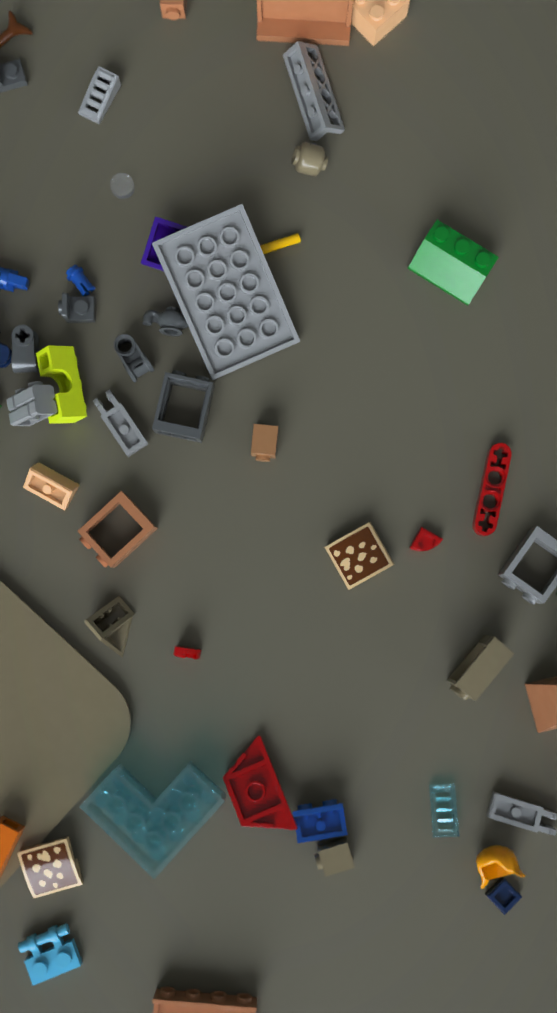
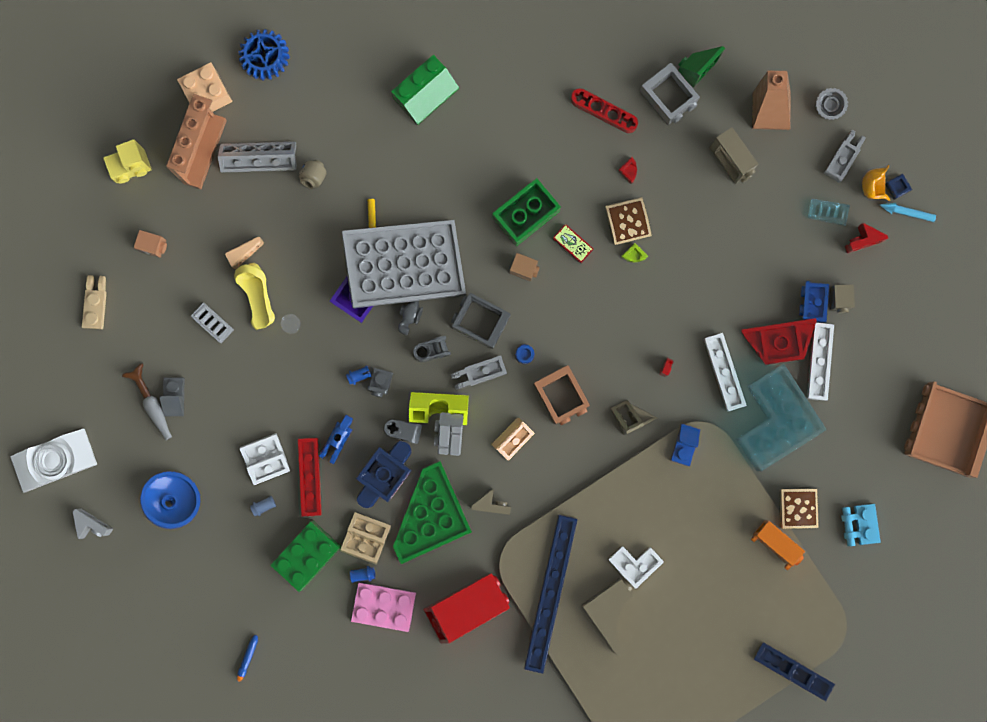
camera: 80 degrees left, 0 degrees up
(93, 701) = (685, 445): none -> blue slope
(158, 472) = (524, 354): none -> blue tile
(159, 127) = (253, 282): none -> light yellow hair
(188, 103) = (243, 252): none -> light nougat slope
(199, 728) = (724, 372): none -> white plate
(244, 848) = (820, 362): none -> white plate
(312, 495) = (573, 243): none -> tile
(319, 575) = (634, 254): none -> lime tile
(332, 424) = (526, 212): none -> green brick
(425, 872) = (868, 237): none -> red slope
(437, 72) = (249, 56): none -> blue gear
(473, 895) = (892, 207): none -> medium azure piece

